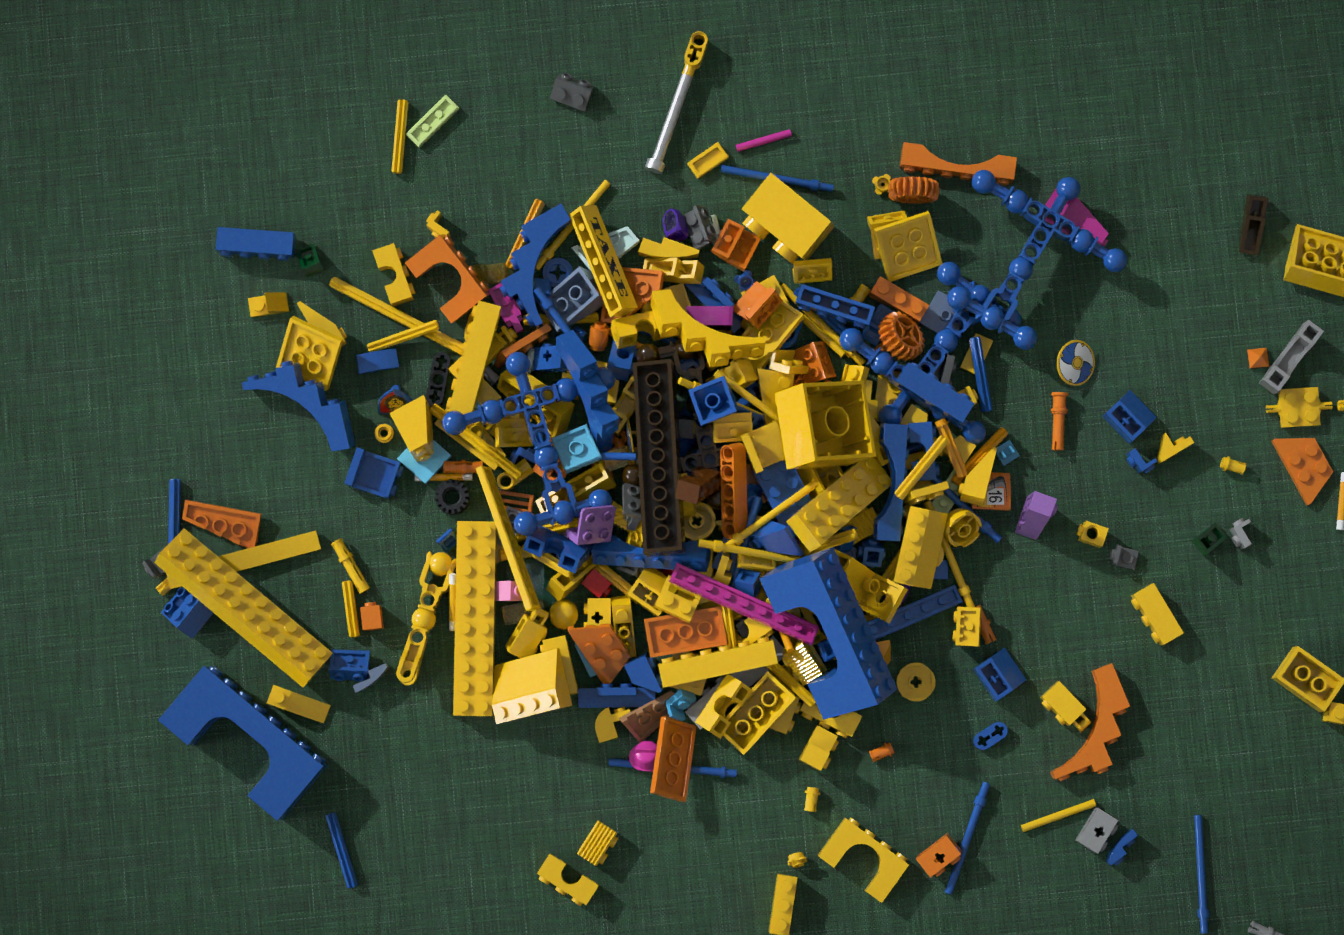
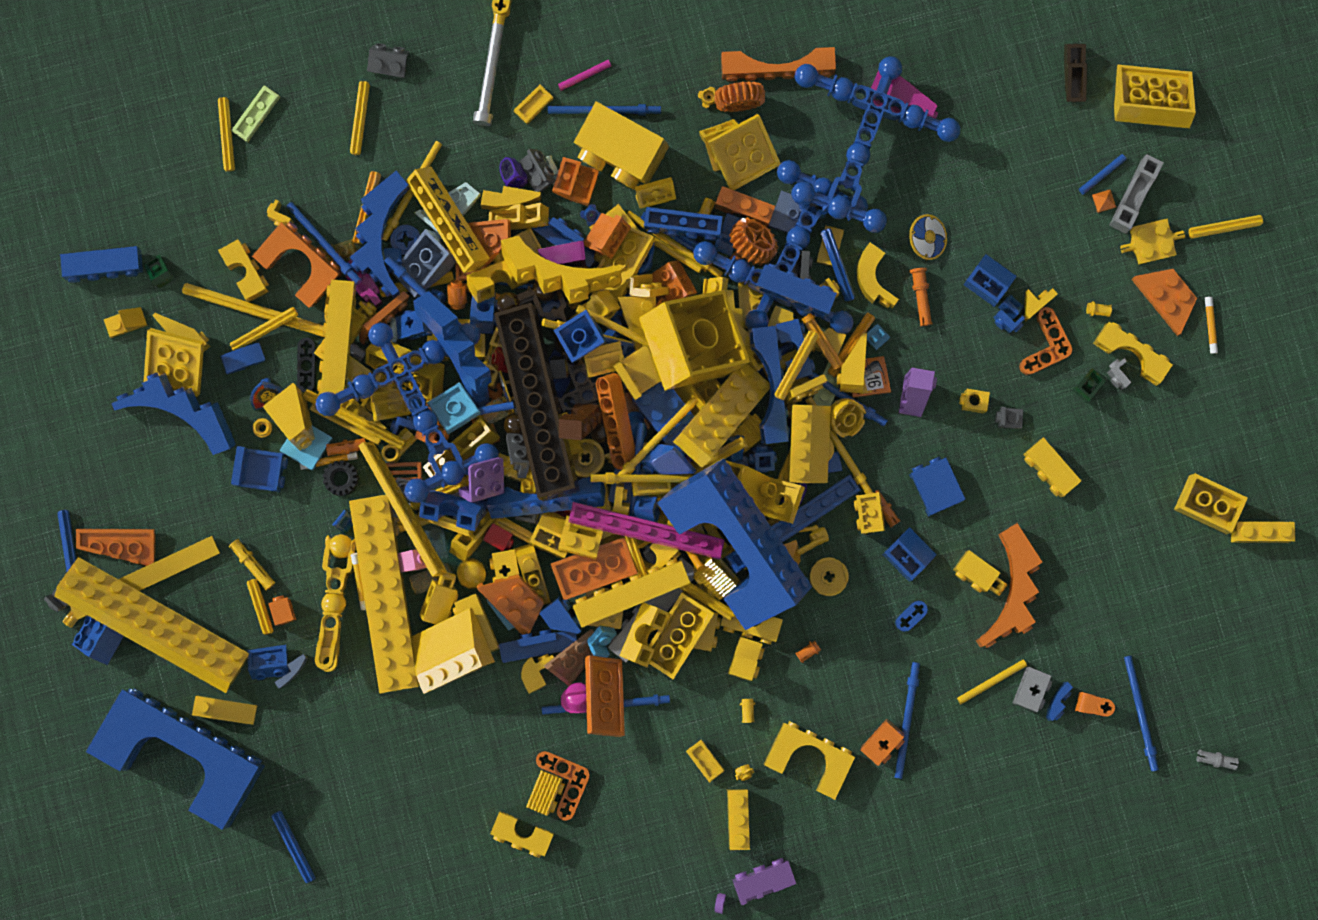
camera: 15 degrees left, 0 degrees up
(494, 291) = (346, 268): none -> blue bar
(534, 143) = (359, 119): none -> yellow axle
(625, 830) = (570, 775): none -> orange beam
(628, 409) = (498, 360): none -> red bracket
(760, 841) = (705, 761): none -> yellow plate
(911, 641) = (817, 537): none -> yellow plant
(1007, 393) = (867, 279): none -> yellow arch
(1039, 611) = (937, 485): none -> blue panel
(1146, 447) = (1011, 307): none -> blue slope
(1153, 855) = (1091, 704): none -> orange piece
(1180, 497) = (1053, 349): none -> orange beam
(1260, 331) = (1102, 174): none -> blue bar
(1276, 532) = (1153, 366): none -> yellow arch

